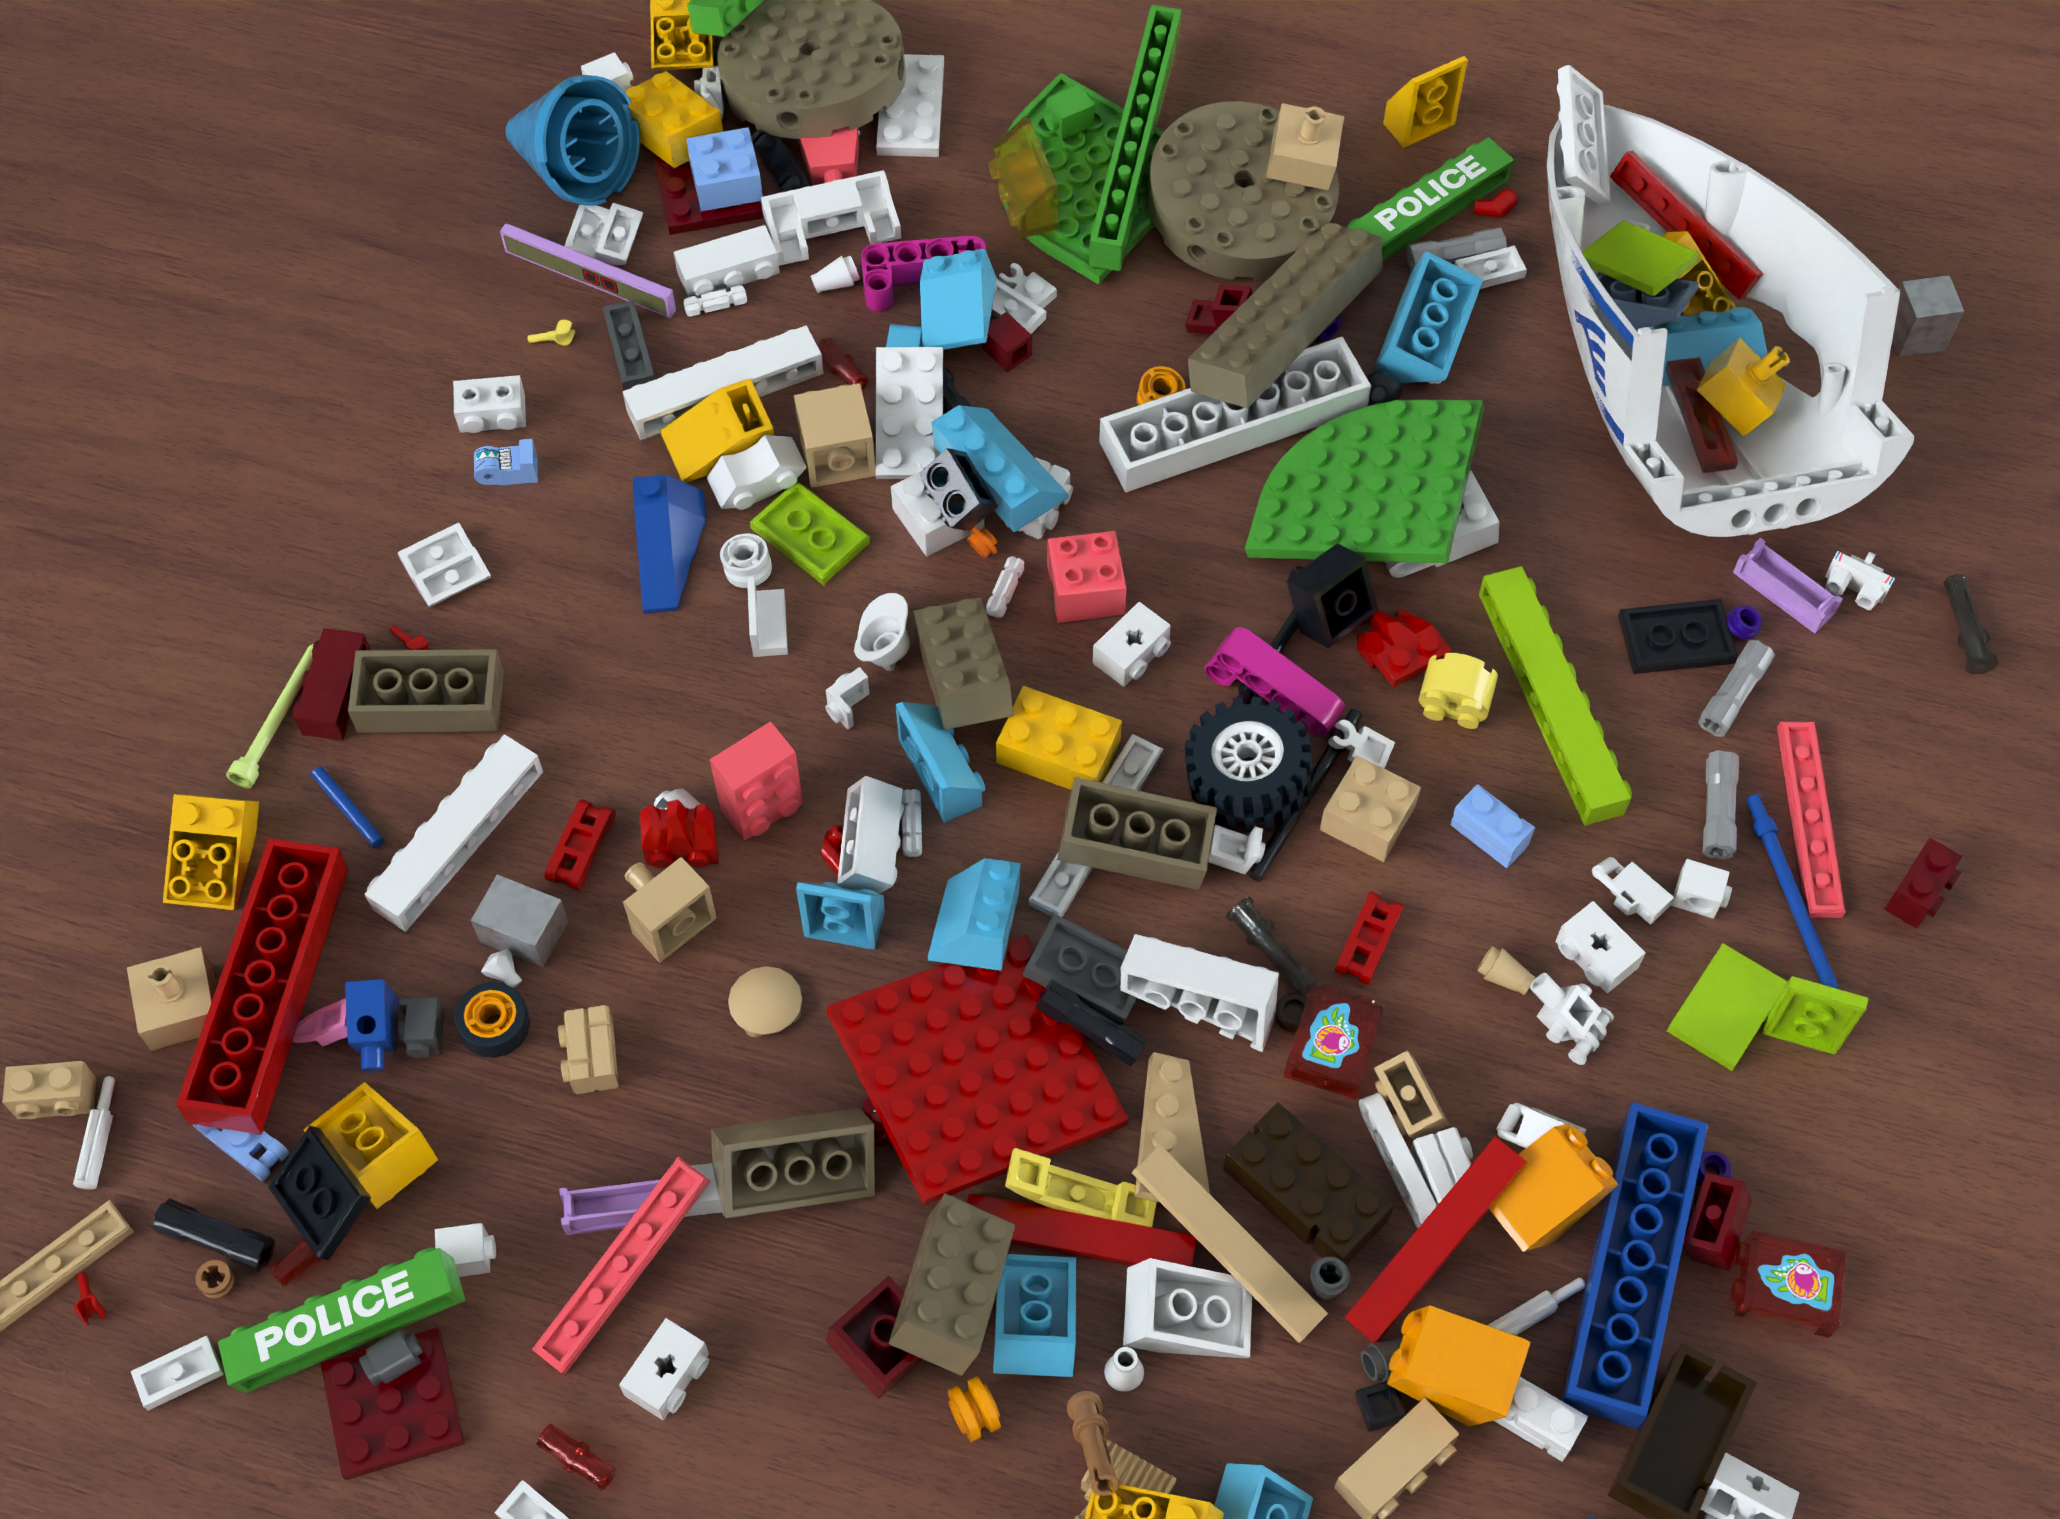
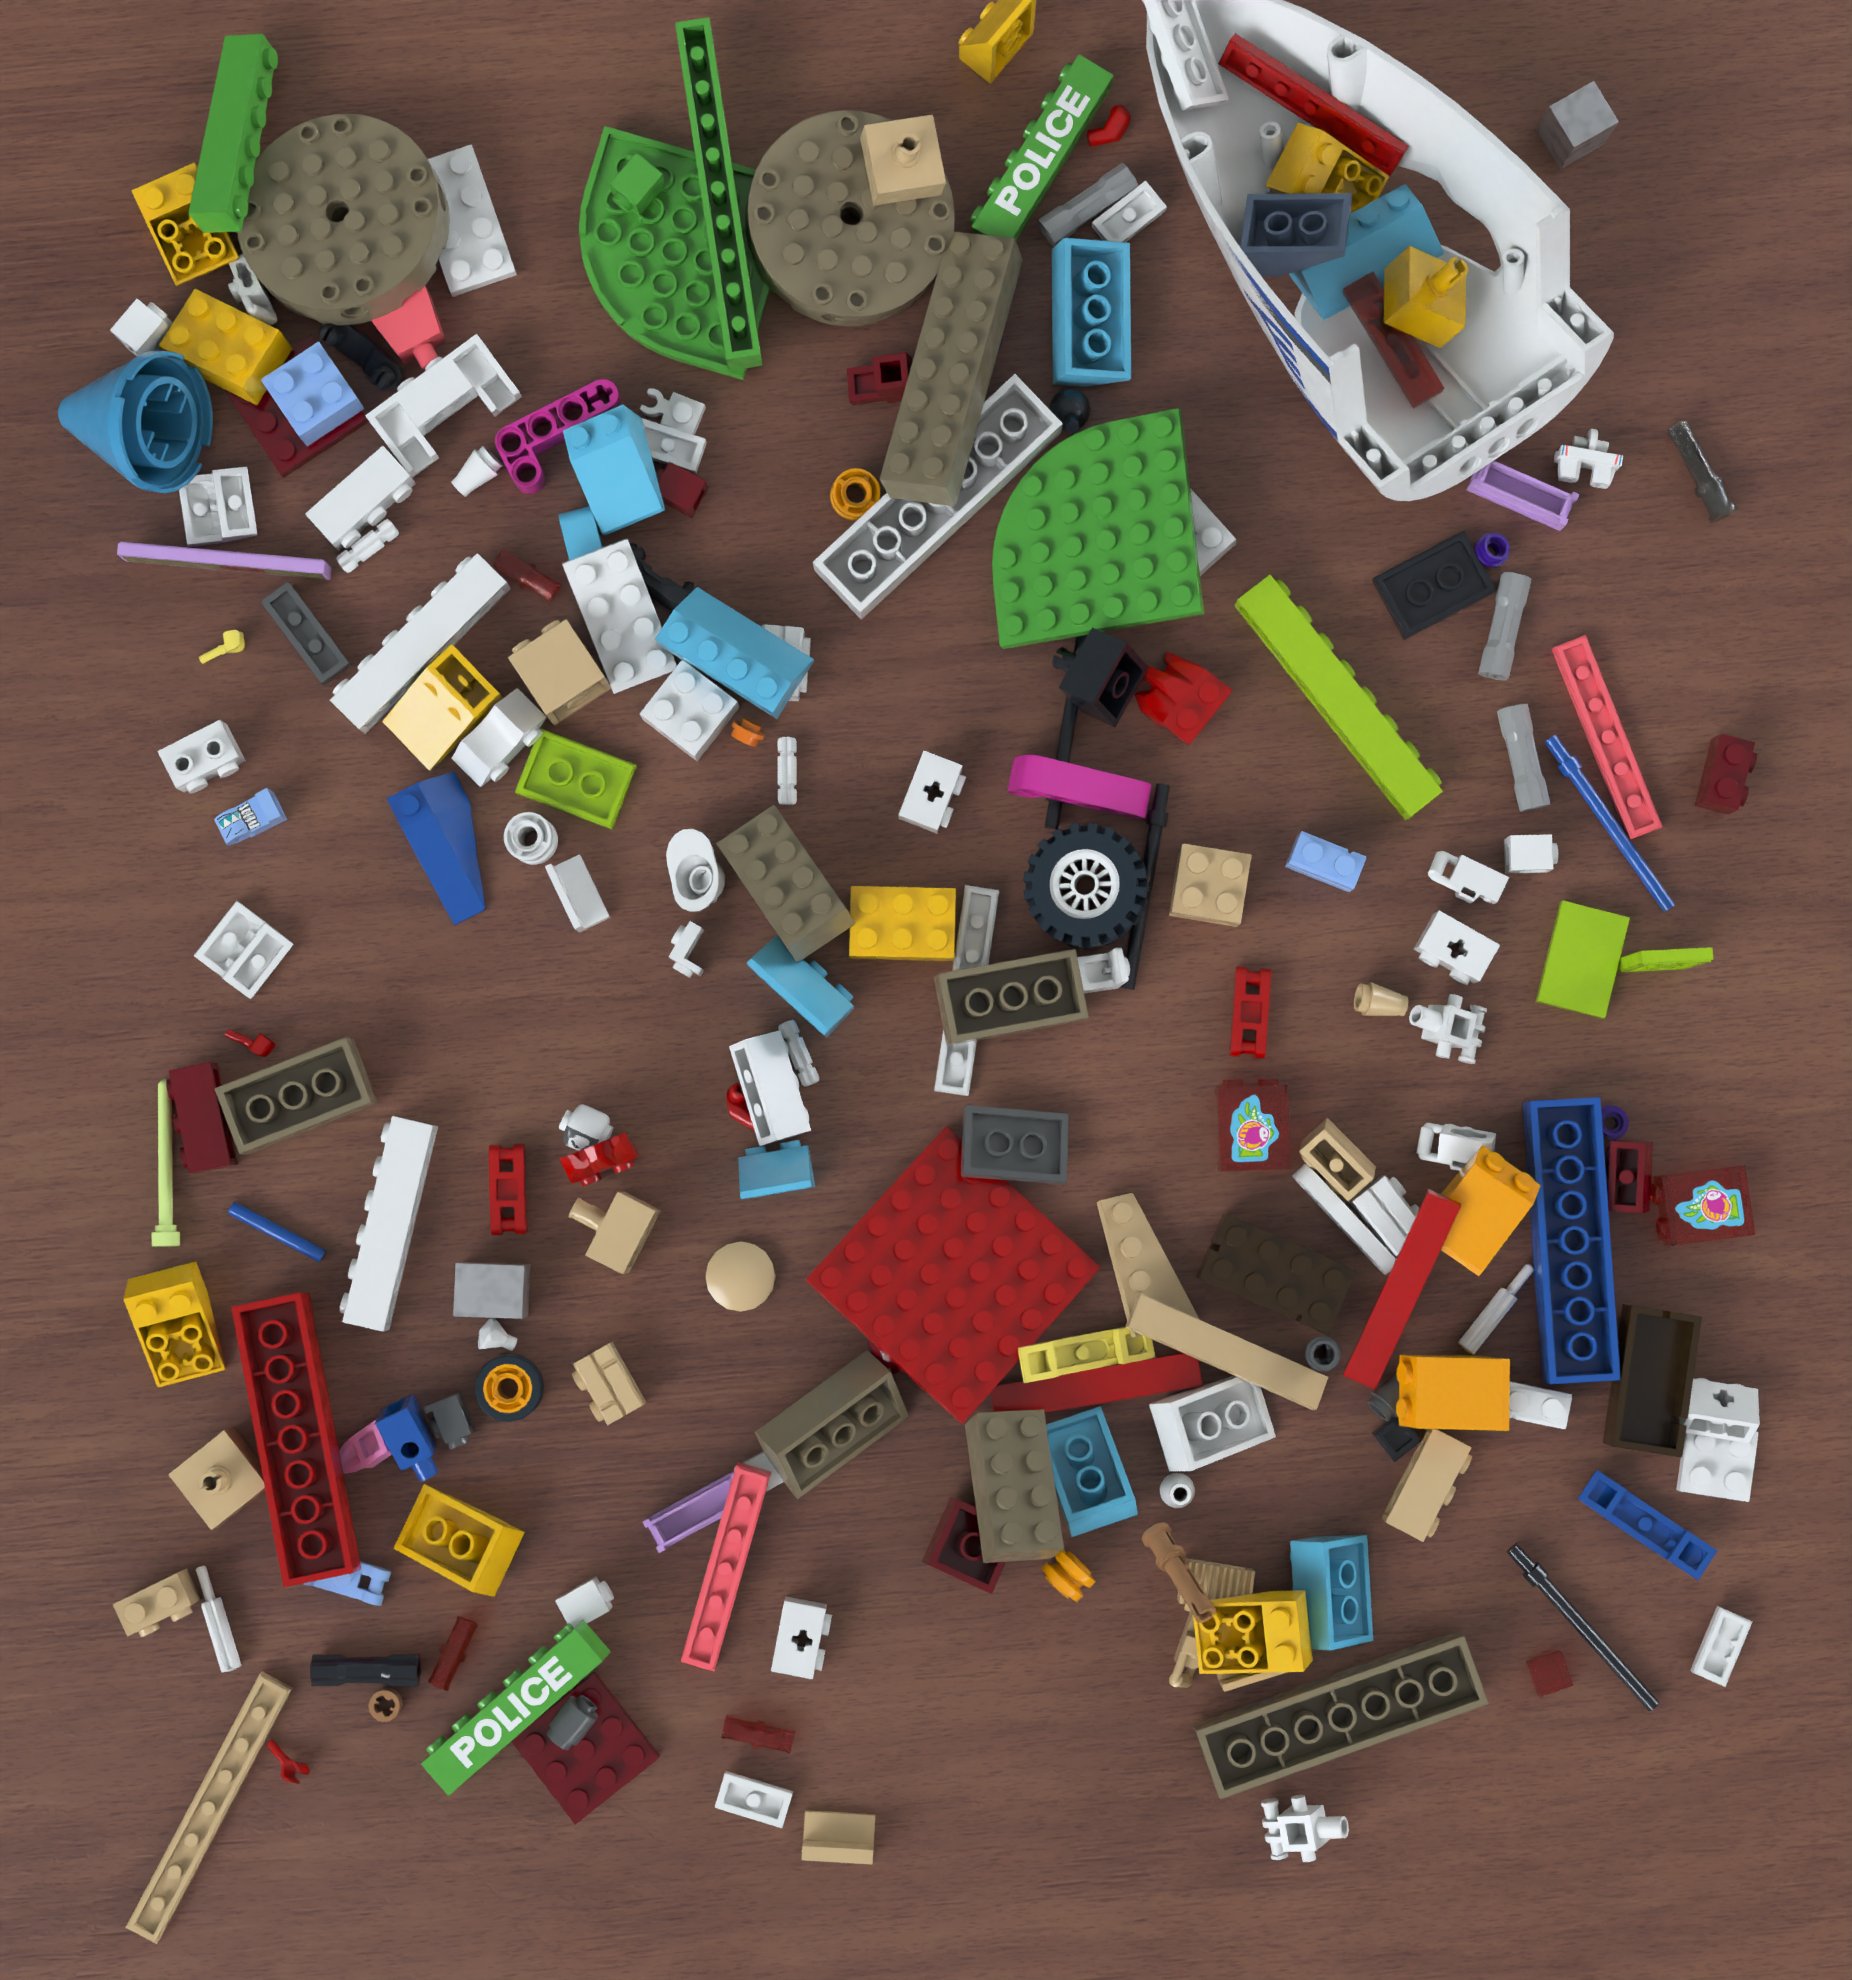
camera: 20 degrees left, 25 degrees up
(177, 1373) = (396, 1795): white plate -> none
(319, 1192) = (441, 1608): black tile -> none
(757, 781) = (650, 1084): coral brick -> none
(963, 485) = (712, 708): black brick -> none
(977, 915) = (897, 1133): medium azure slope -> none
(1025, 180) = (627, 298): clear yellow slope -> none
(1086, 576) = (863, 738): coral piece -> none
(1114, 1037) = (1014, 1194): black axle -> none
(1203, 987) = (1121, 1128): white wedge -> none
(1262, 934) = (1154, 1047): clear smoke pin -> none
(1290, 1010) = (1204, 1109): dark brown tile -> none
(1364, 744) = (1184, 822): white plate -> none
(1457, 689) = (1251, 732): light yellow brick -> none
(1639, 258) = (1282, 181): lime tile -> none

